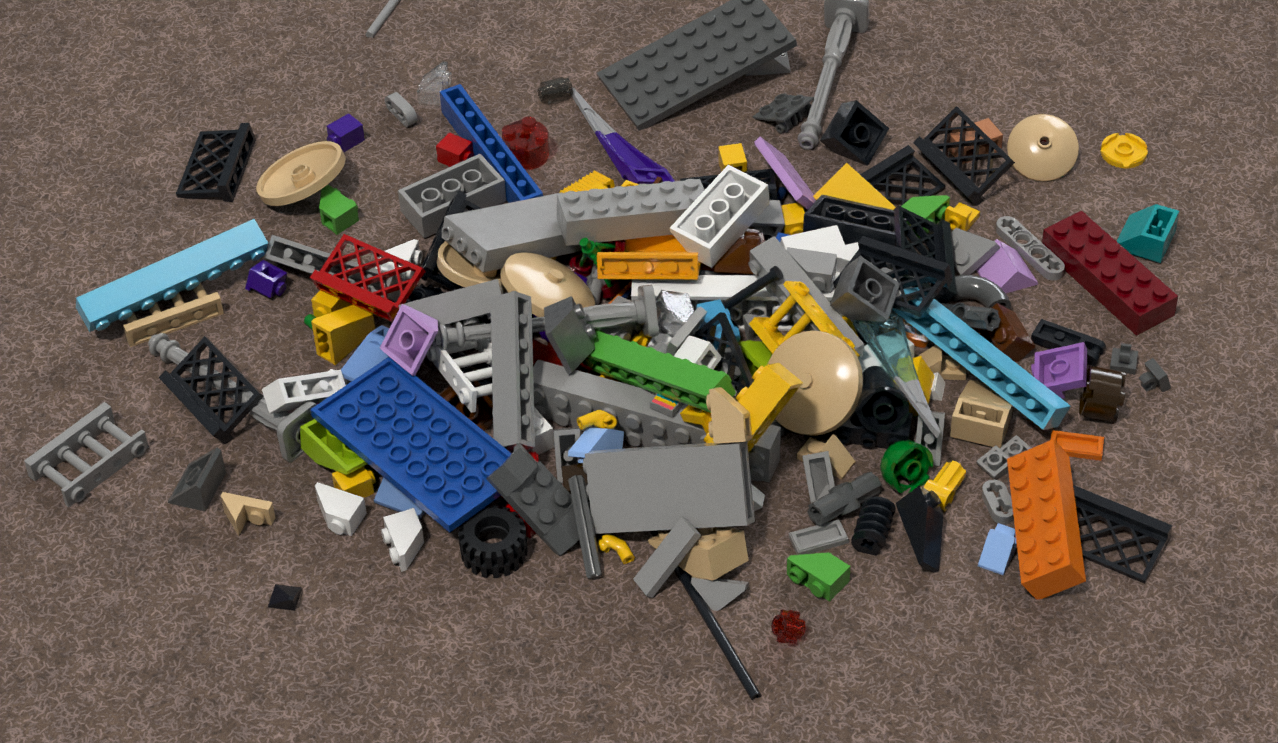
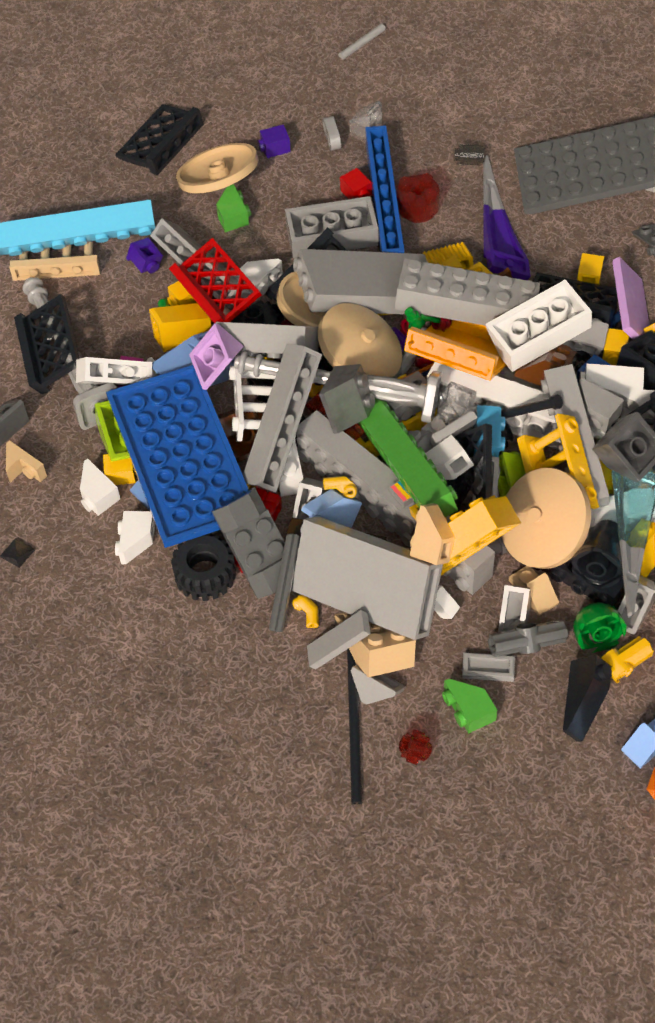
camera: 25 degrees right, 10 degrees up
(873, 525) = (540, 673): black piece -> none

